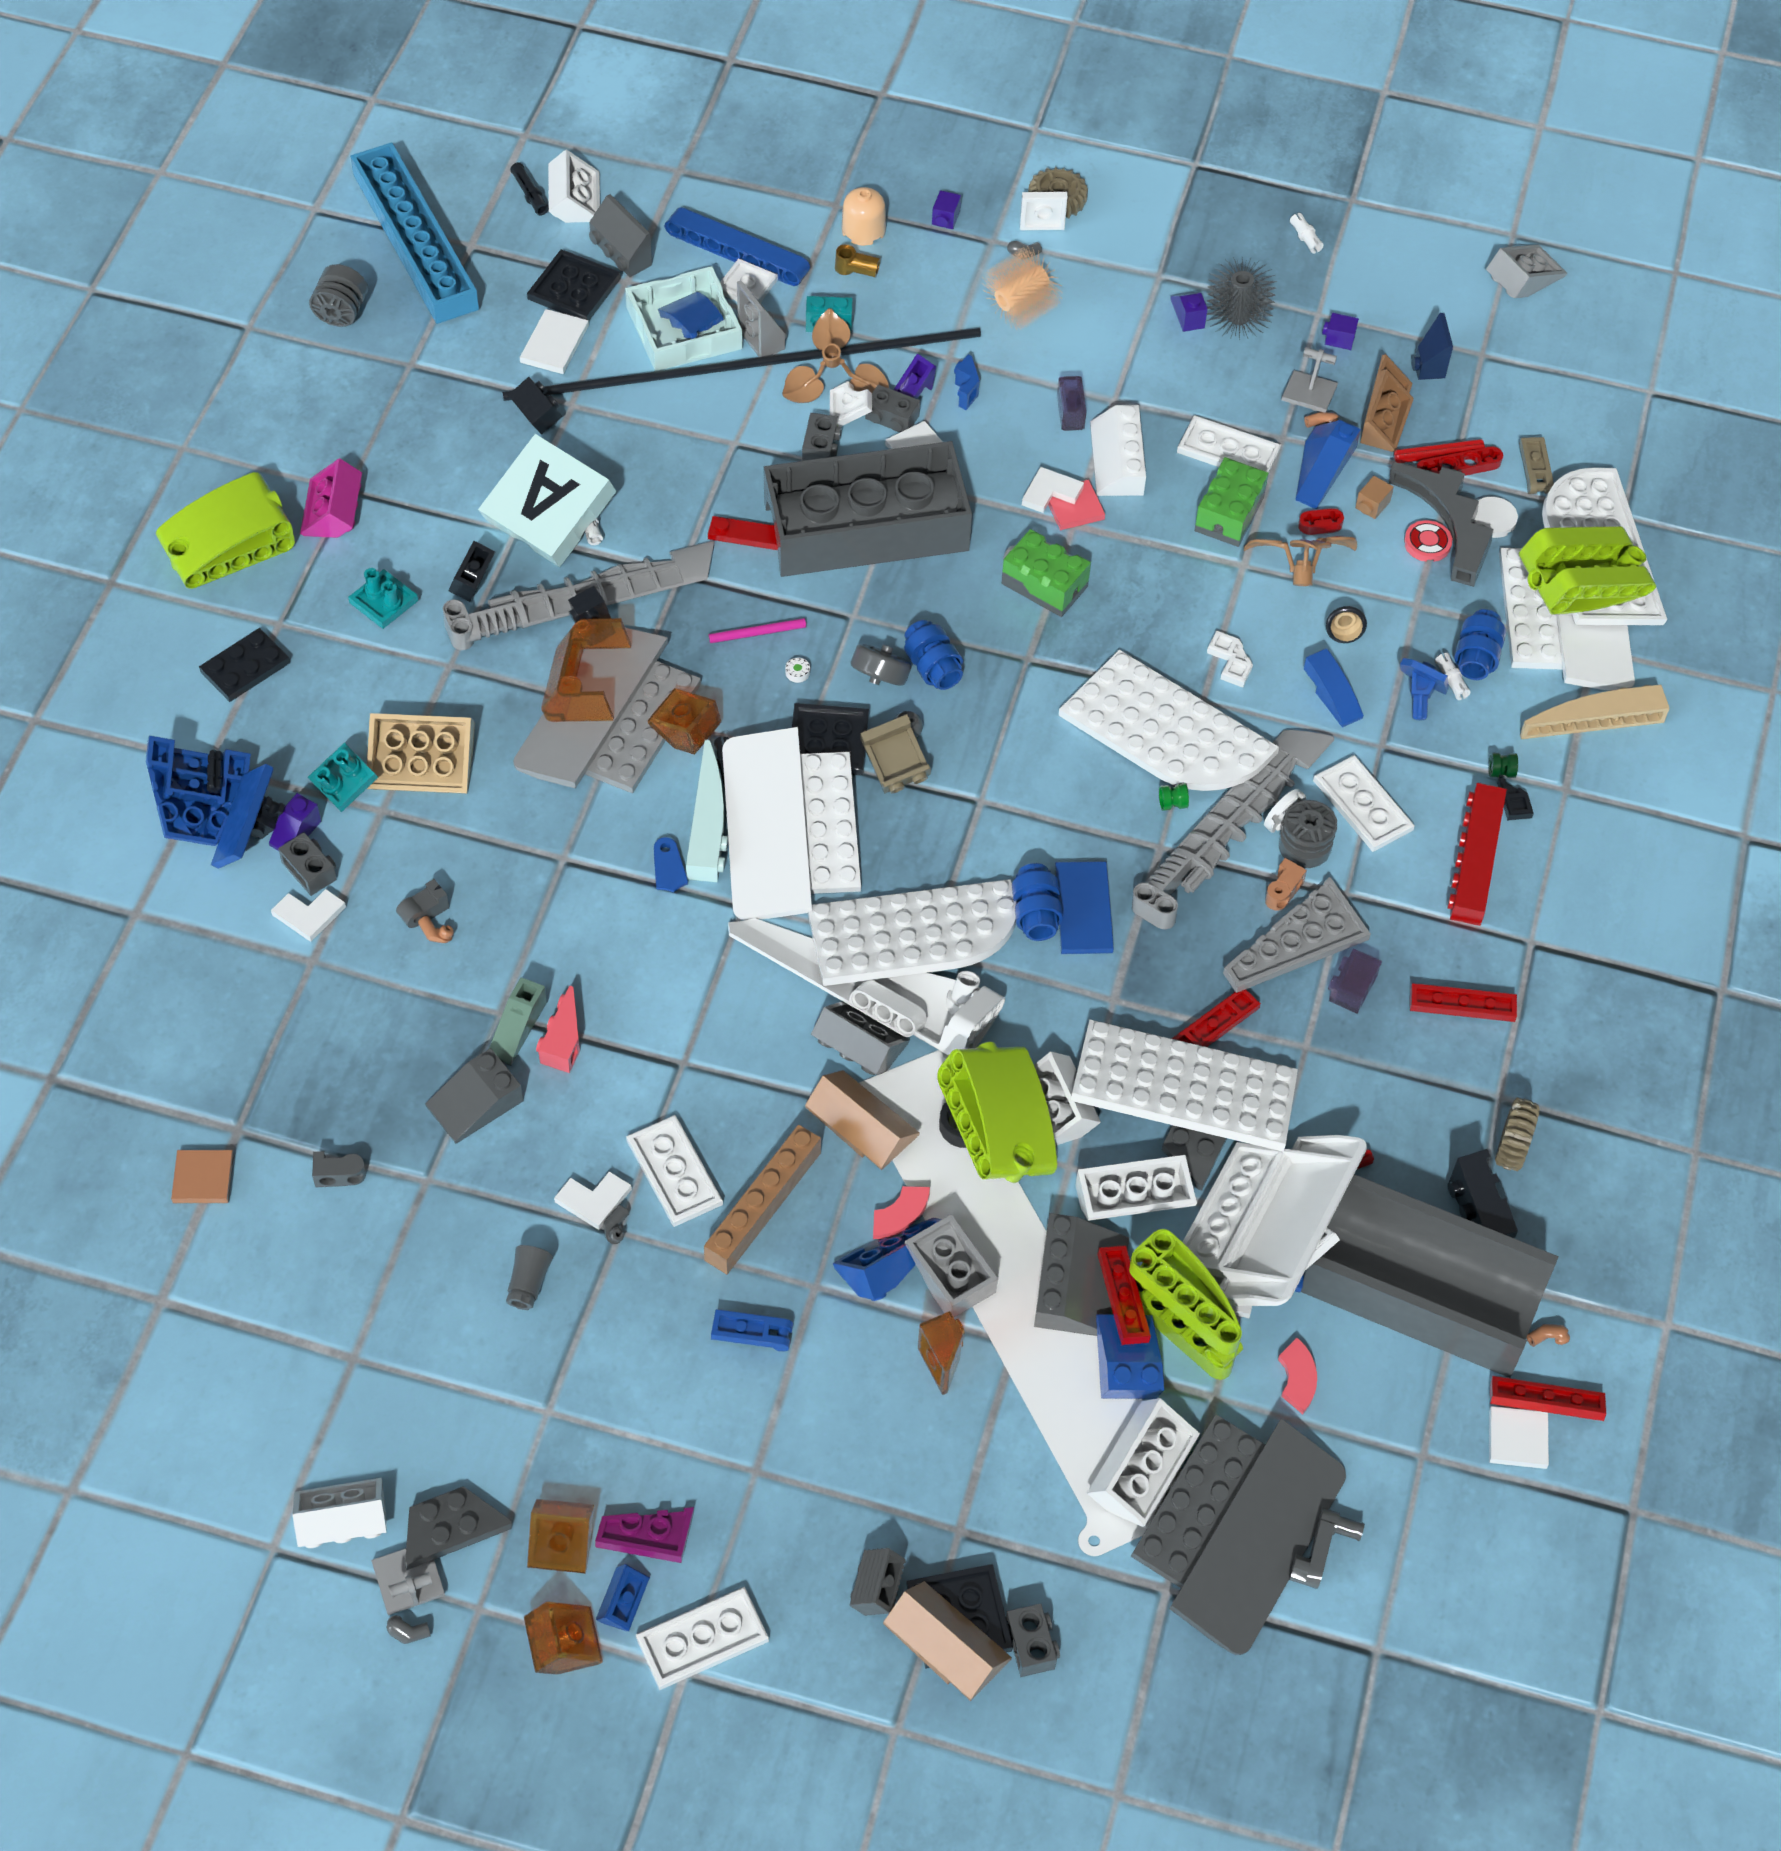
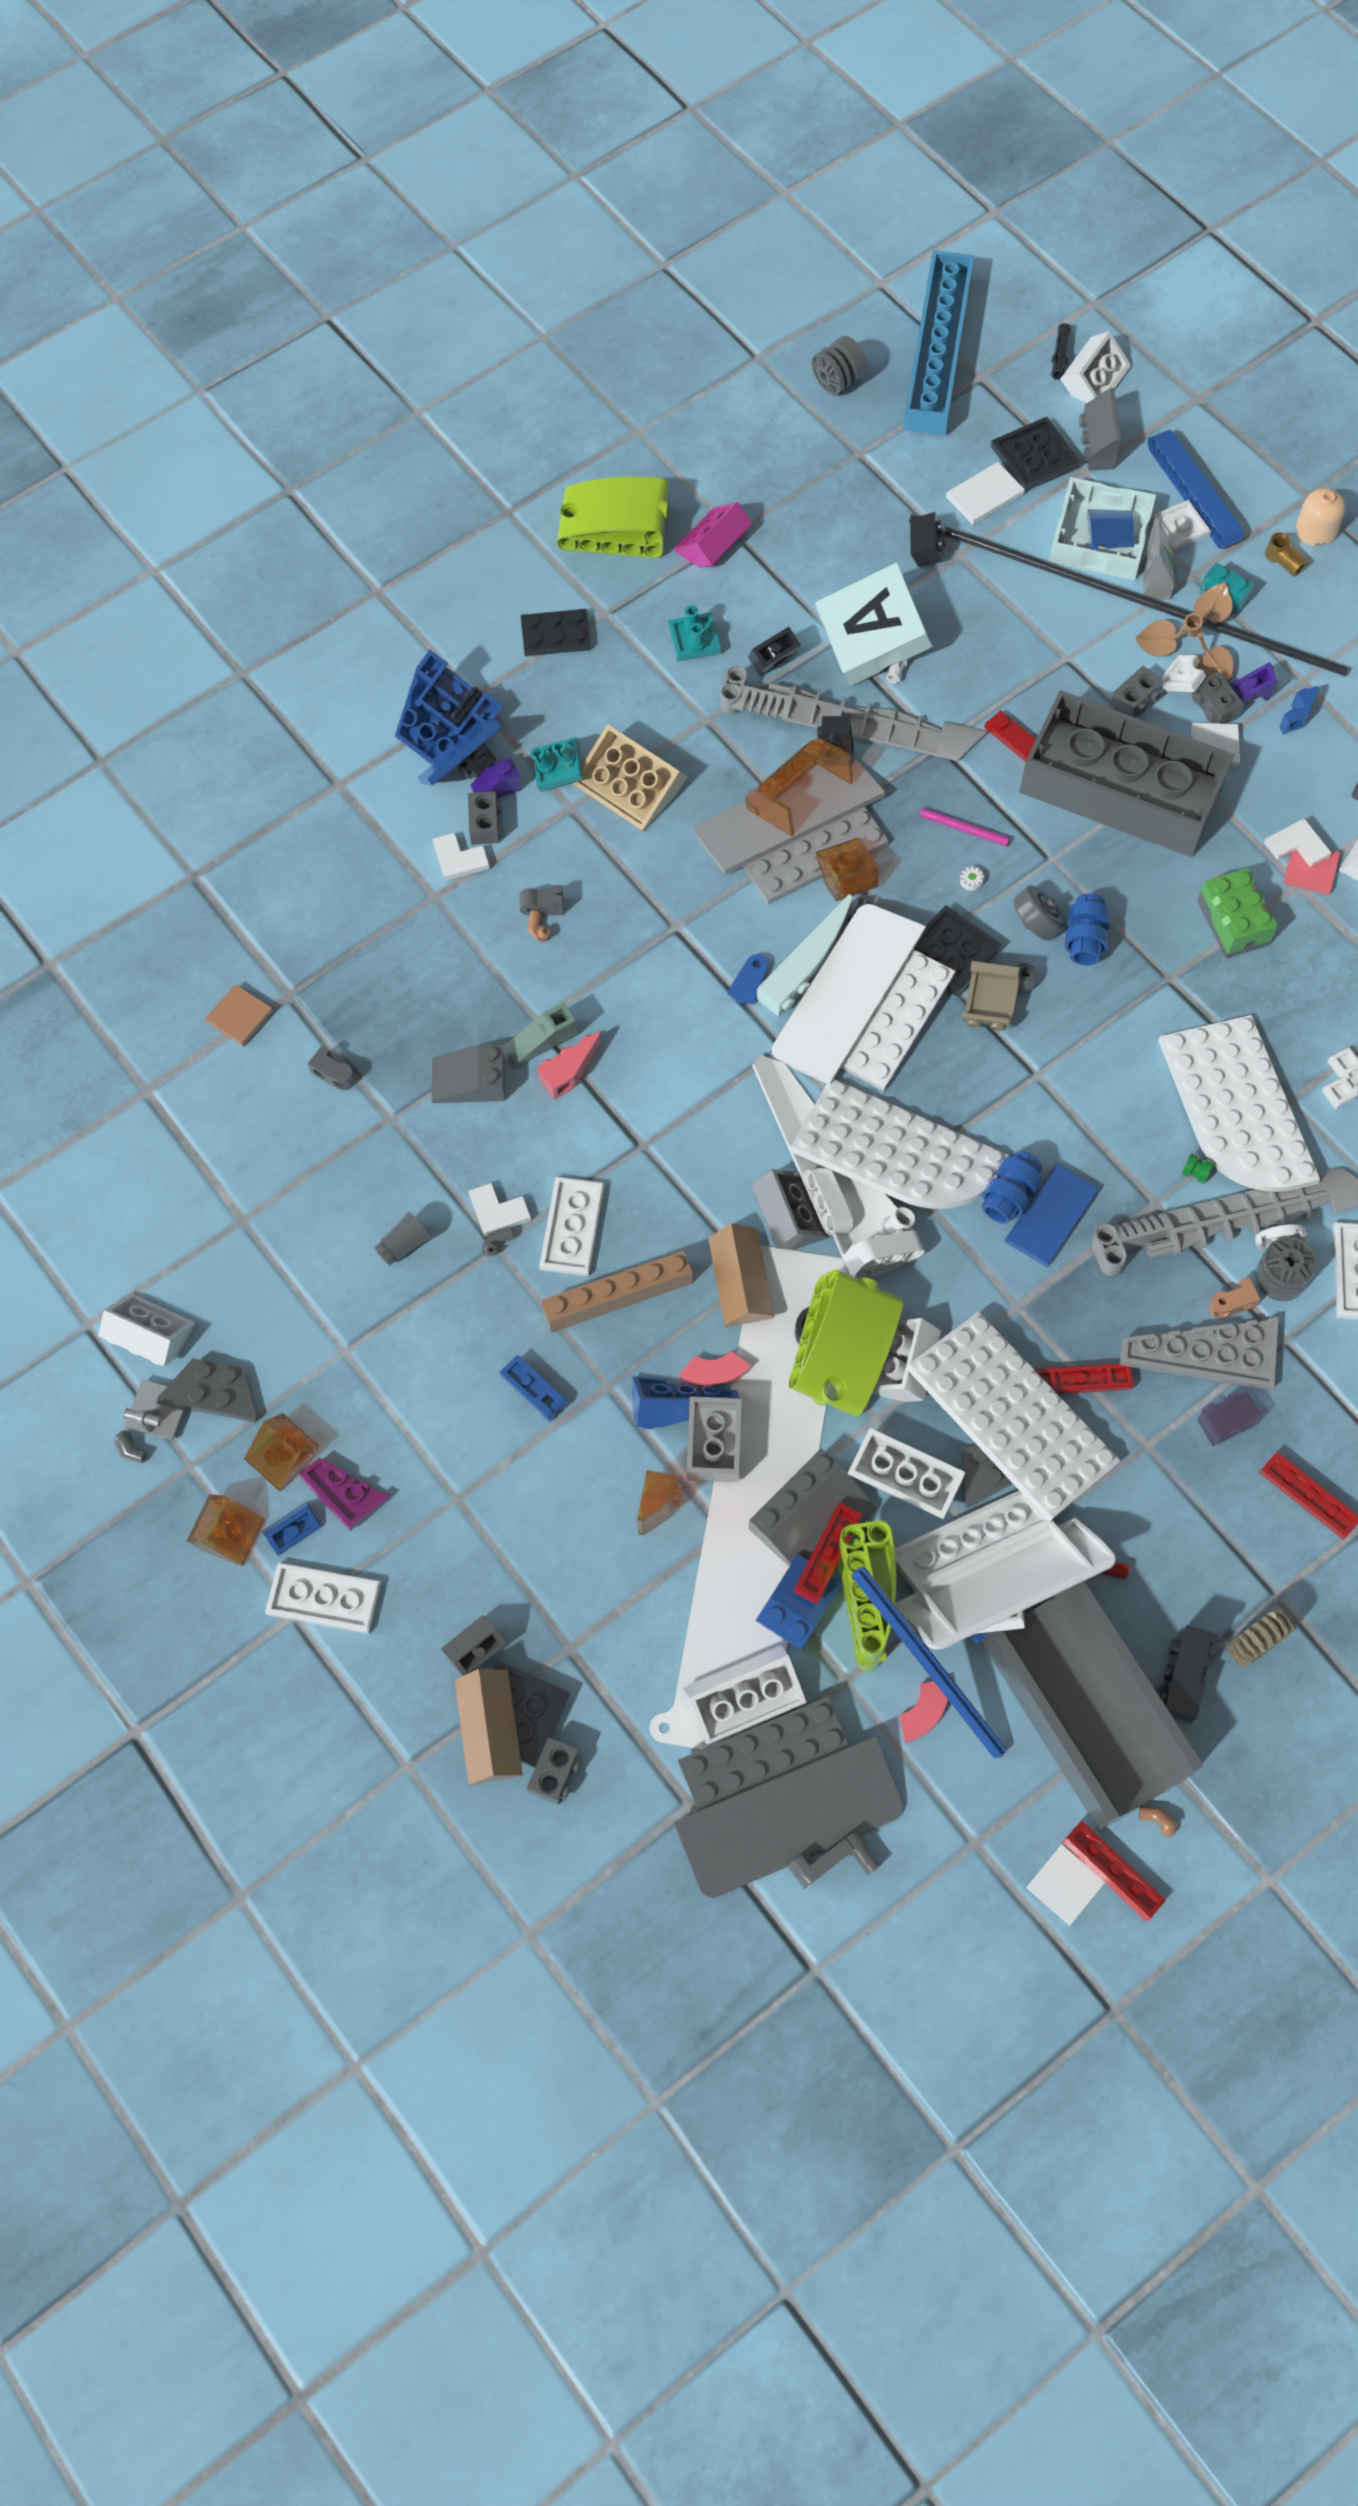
camera: 40 degrees right, 10 degrees up
(1282, 1322) = (929, 1662): none -> blue axle

